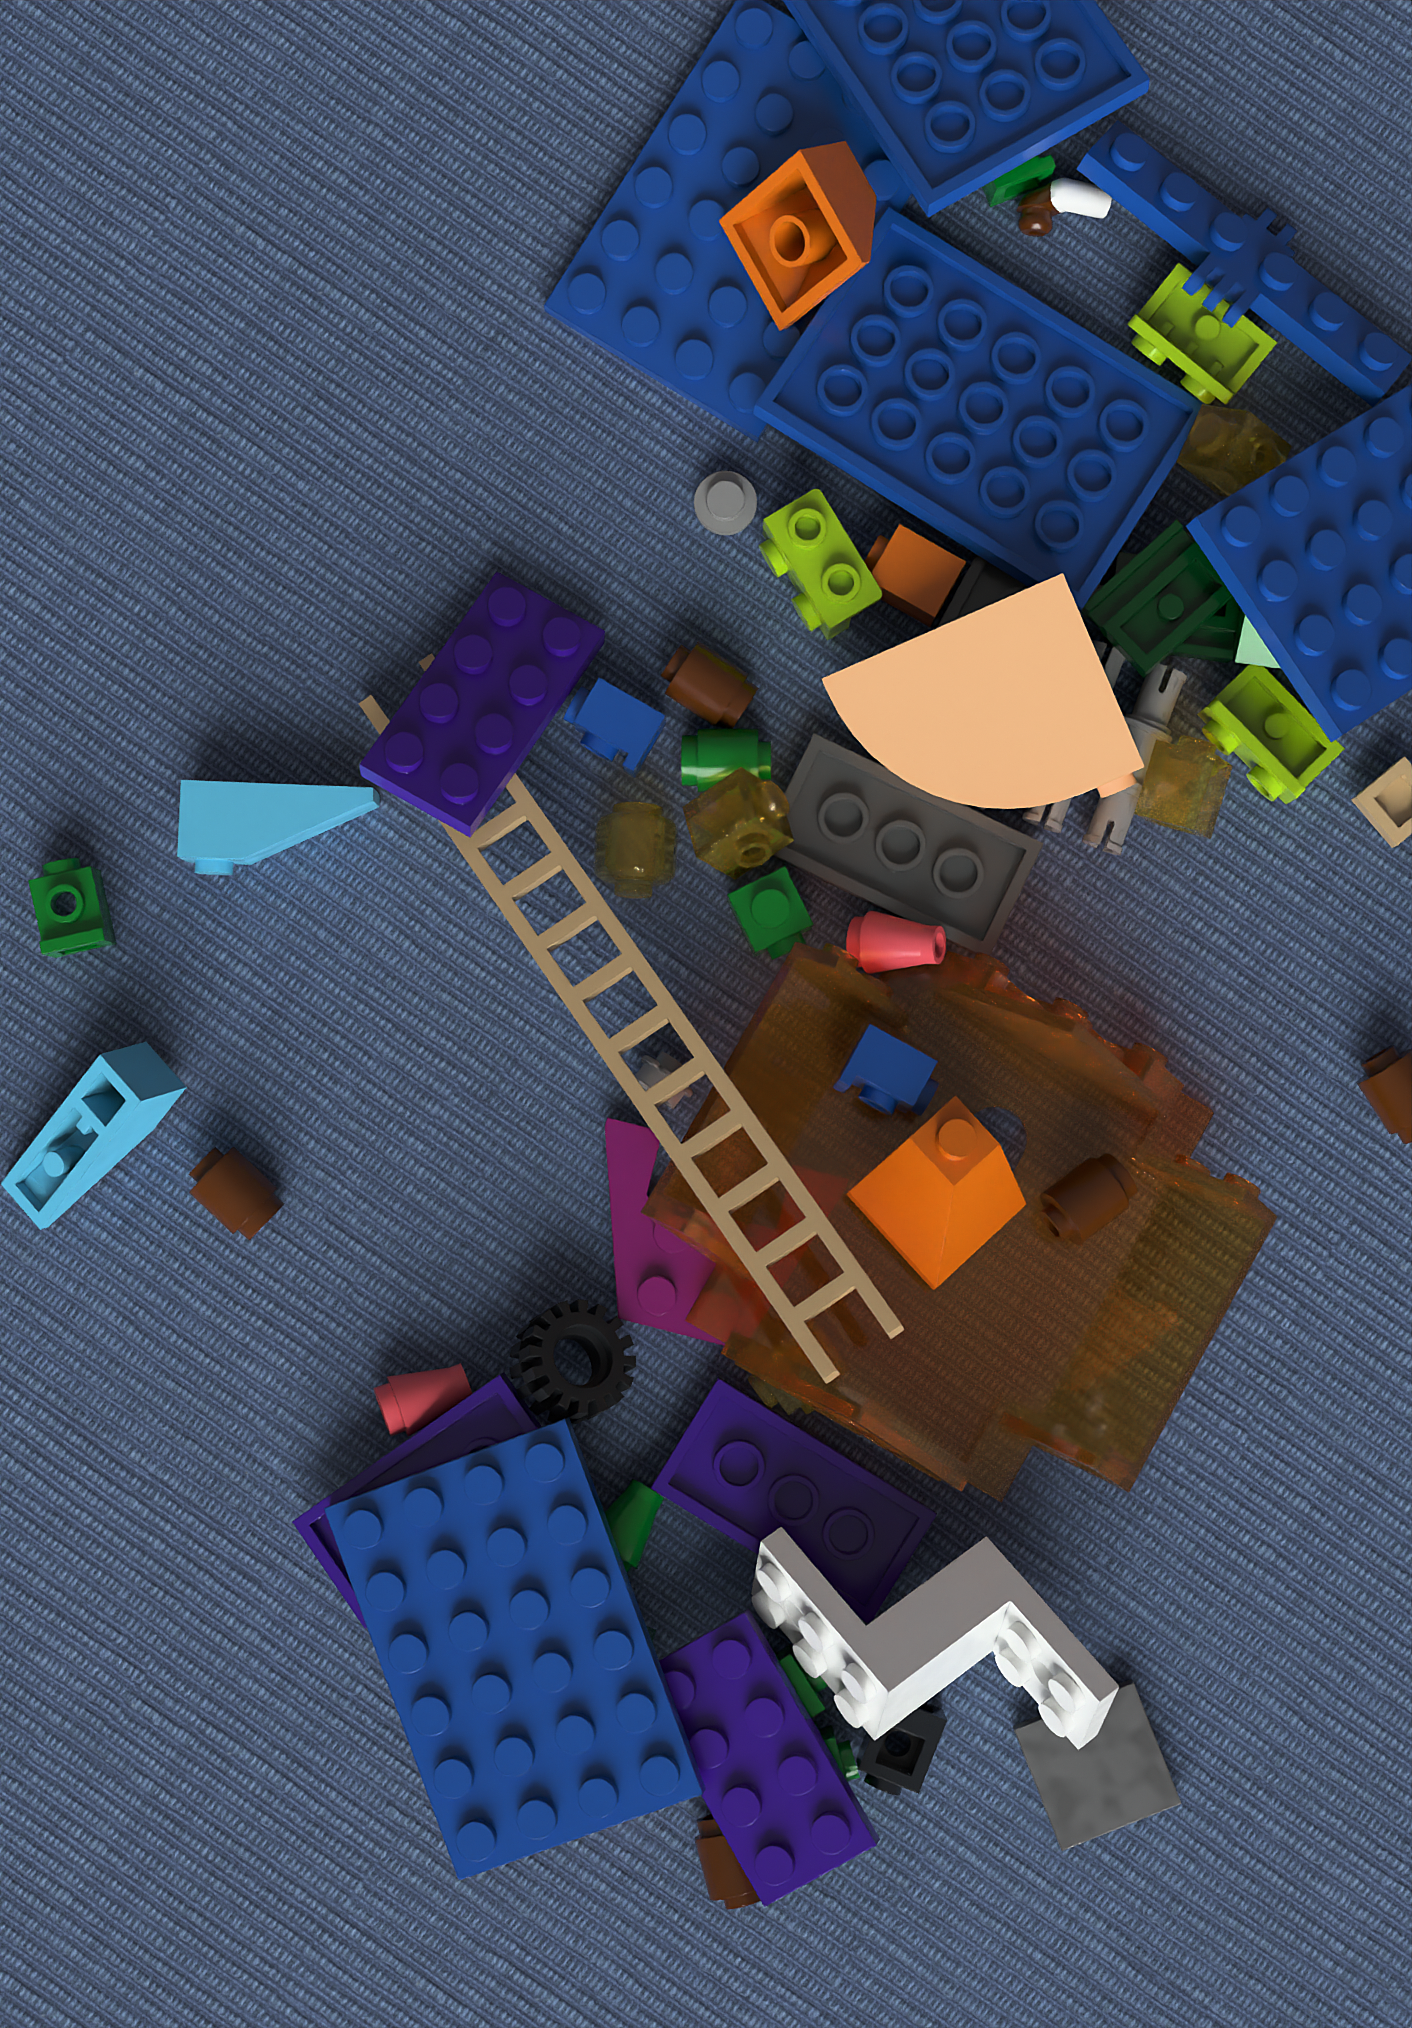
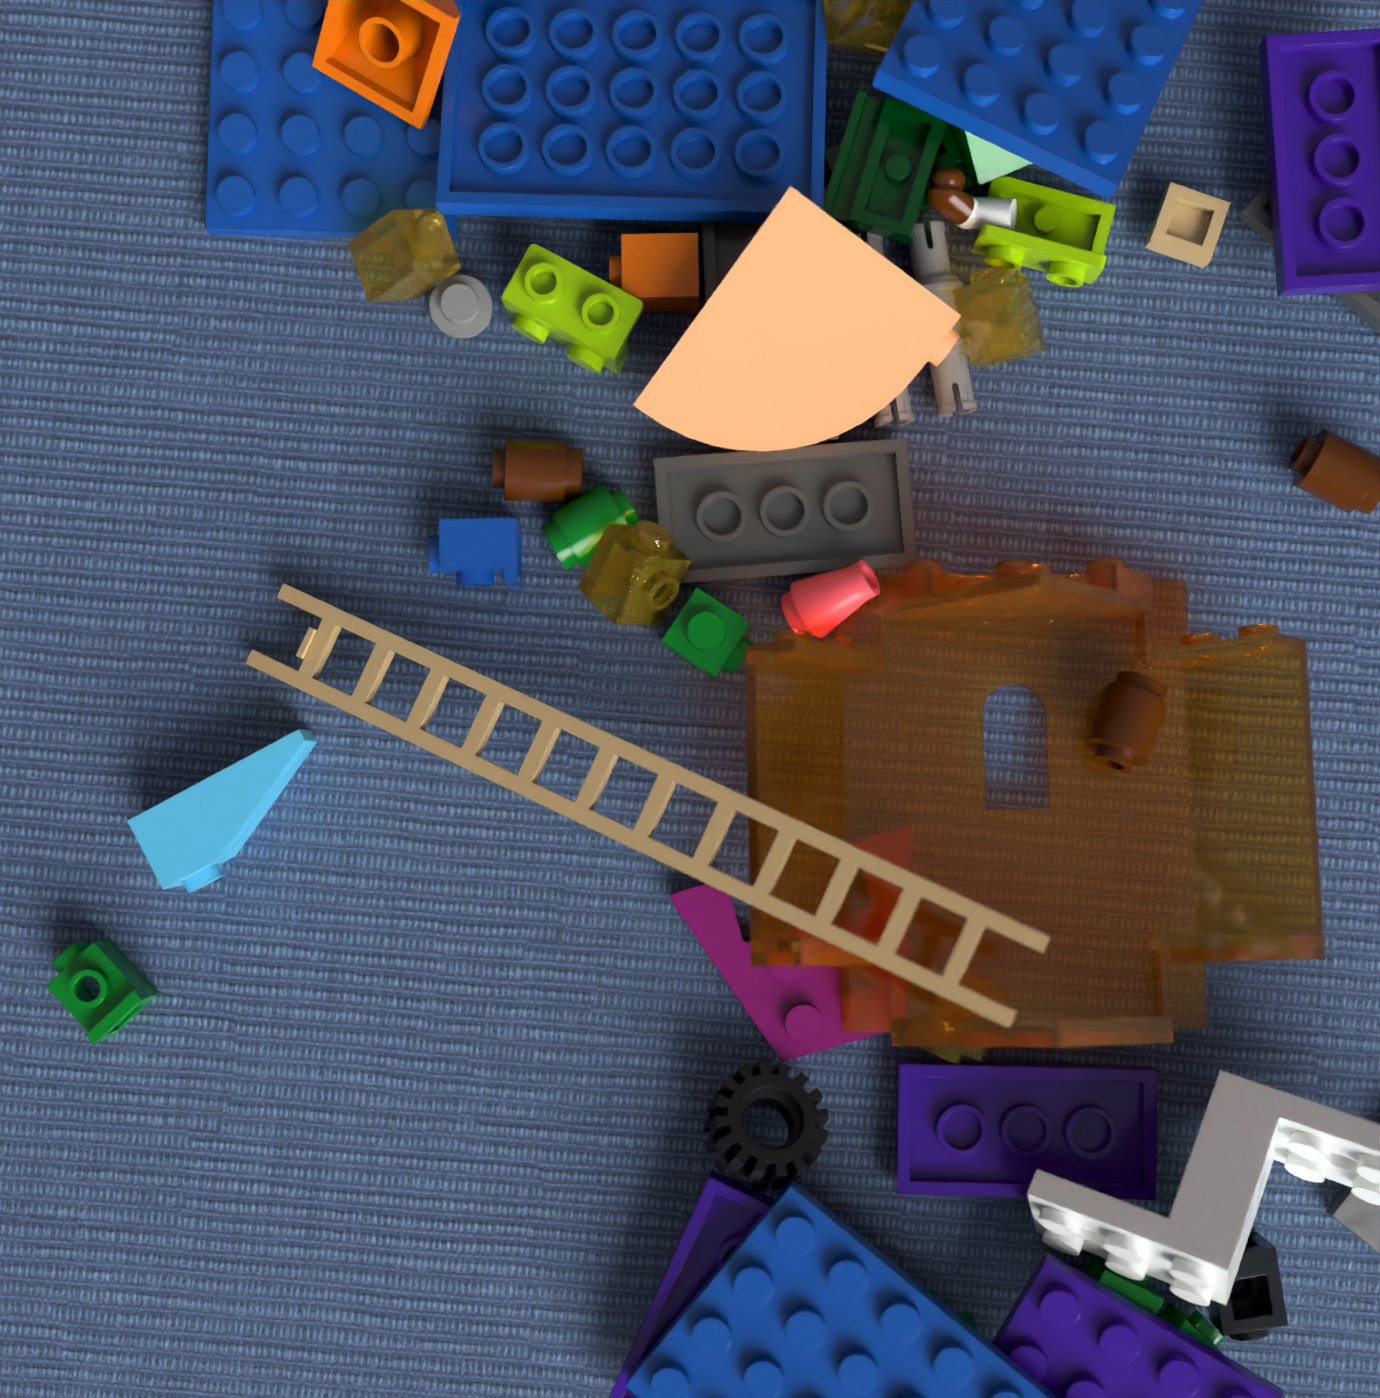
camera: 25 degrees left, 0 degrees up
(93, 1130) = (230, 1168): medium azure slope -> none
(235, 1191) = (385, 1149): reddish brown brick -> none
(420, 1397) = (651, 1233): coral cone -> none
(482, 704) = (351, 602): dark purple plate -> none
(632, 1521) = (896, 1232): green cone -> none
(635, 849) = (558, 648): clear yellow head -> none
(656, 1070) = (691, 829): light grey plate -> none
(702, 431) = (404, 255): none -> clear yellow brick
(888, 1073) = (892, 714): blue brick -> none
(941, 1193) = (998, 790): orange slope -> none
(1210, 677) = (963, 209): none -> arm

